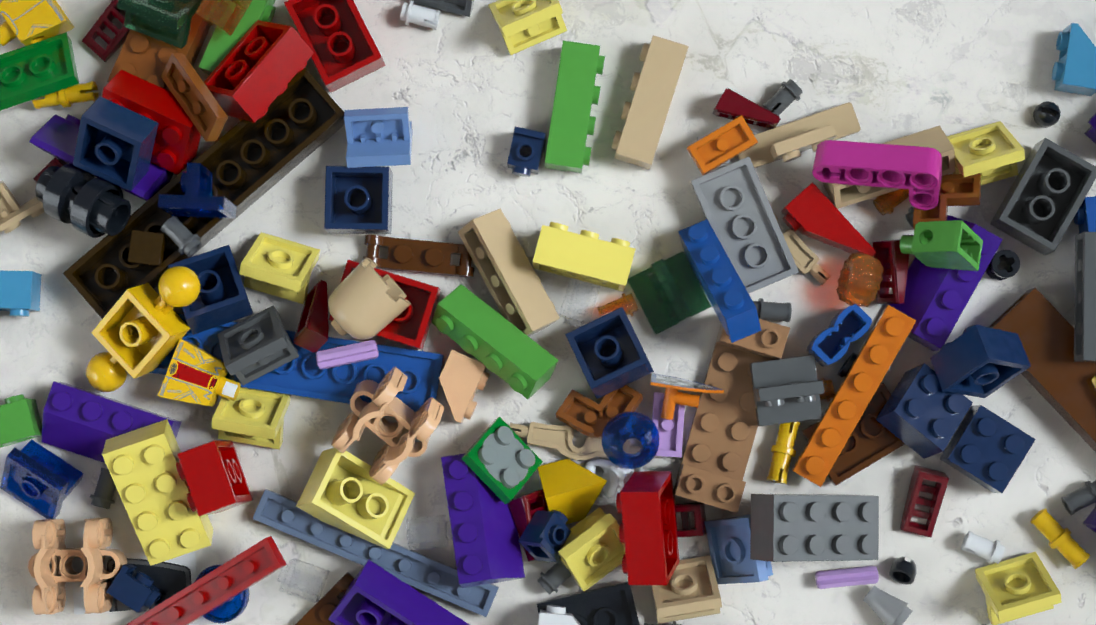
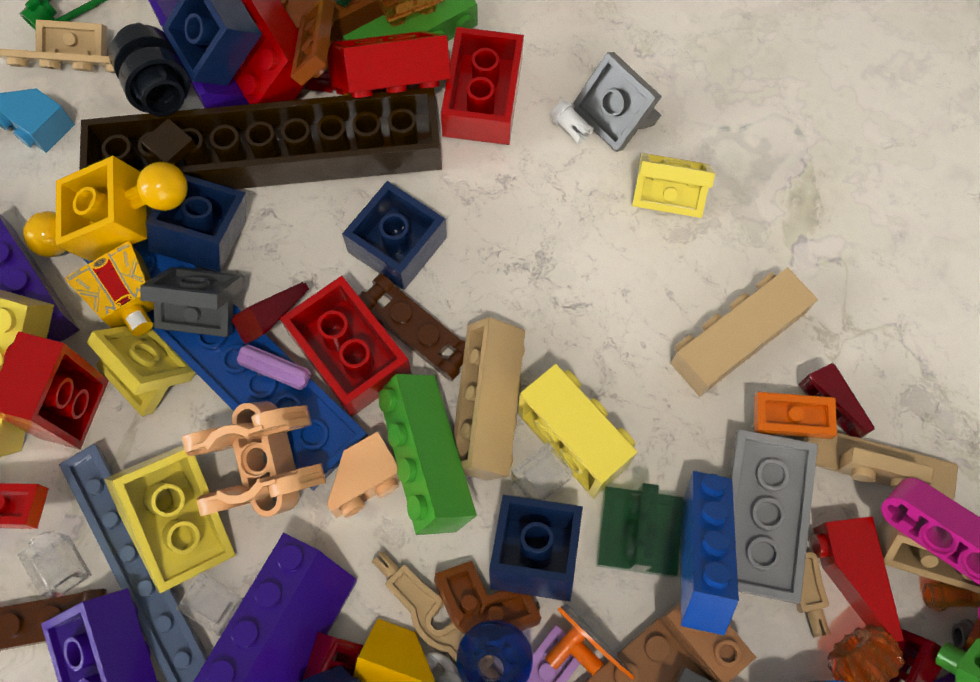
camera: 30 degrees right, 15 degrees down
(181, 236) = (206, 153): dark grey pin -> none
(198, 196) = (244, 119): clear blue bracket -> none
(279, 267) = (275, 247): light yellow bracket -> none
(365, 302) = (323, 317): tan cylinder -> none
(378, 137) = (456, 187): medium blue bracket -> none
(502, 460) = (343, 583): piece -> none
(526, 138) = (597, 287): dark blue brick -> none
(572, 107) = (661, 286): bright green brick -> none
(627, 302) = (590, 510): clear orange pin -> none
(773, 311) = (747, 630): dark grey pin -> none
(783, 97) = (890, 414): dark grey pin -> none

